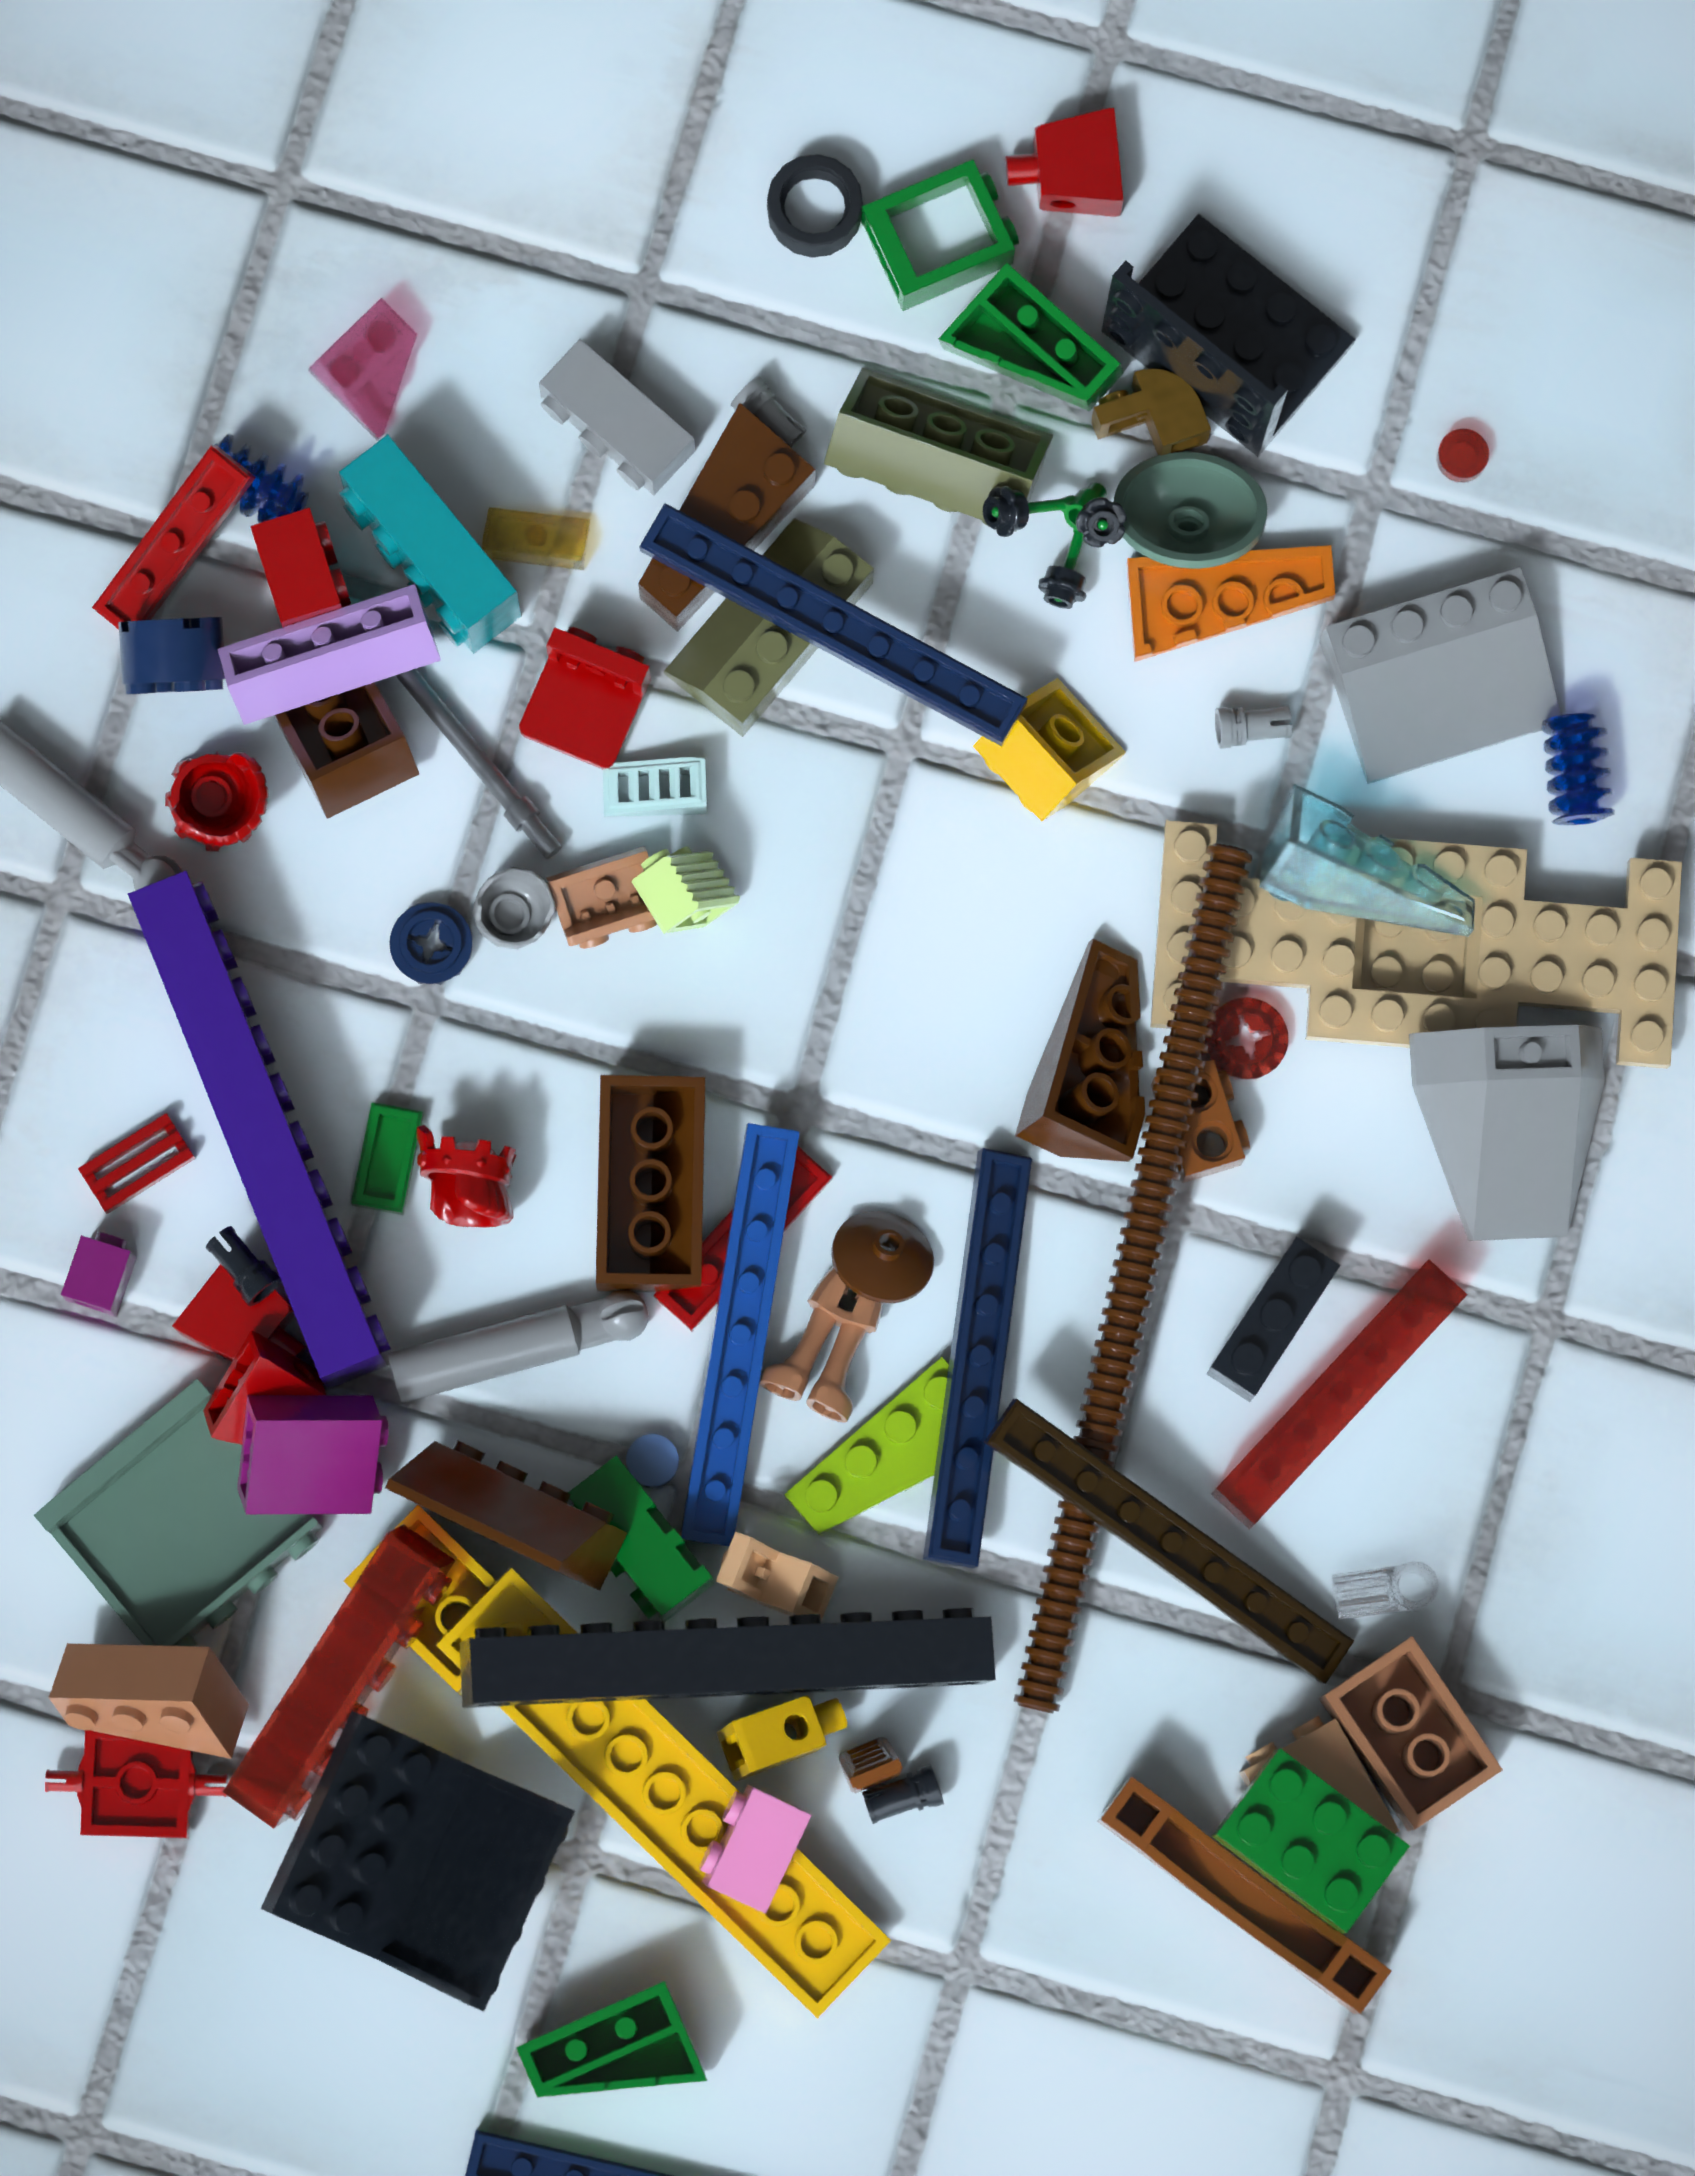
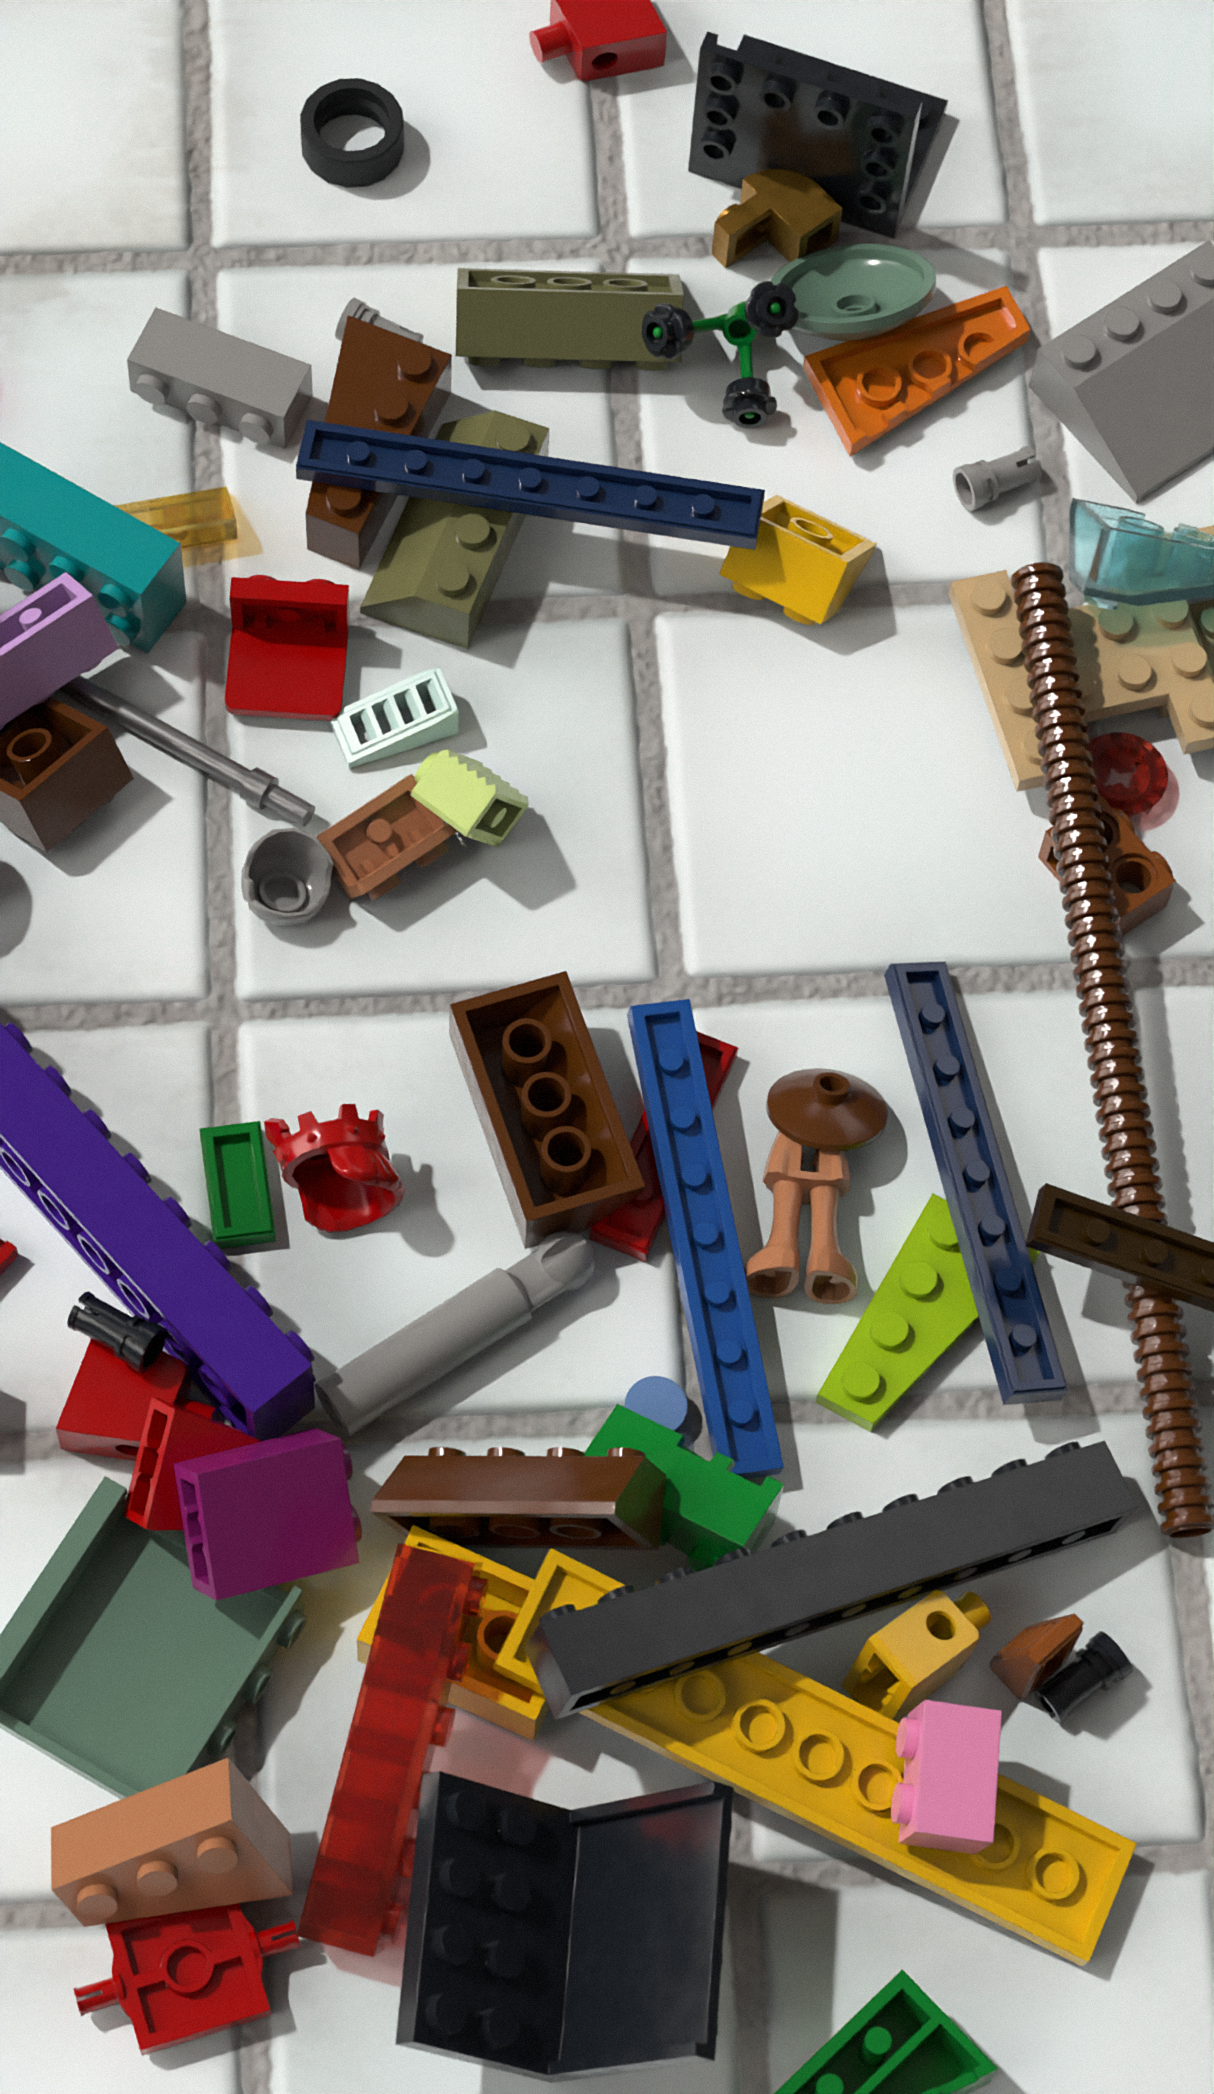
camera: 20 degrees left, 15 degrees down
(418, 923) = (186, 931): dark blue gear -> none
(775, 1578) = (837, 1482): light nougat brick -> none
(895, 263) = (455, 157): green window -> none
(1031, 341) = (627, 185): green wedge -> none
(1088, 1078) = (969, 857): reddish brown wedge -> none
(1462, 455) = (1098, 176): clear red tile -> none

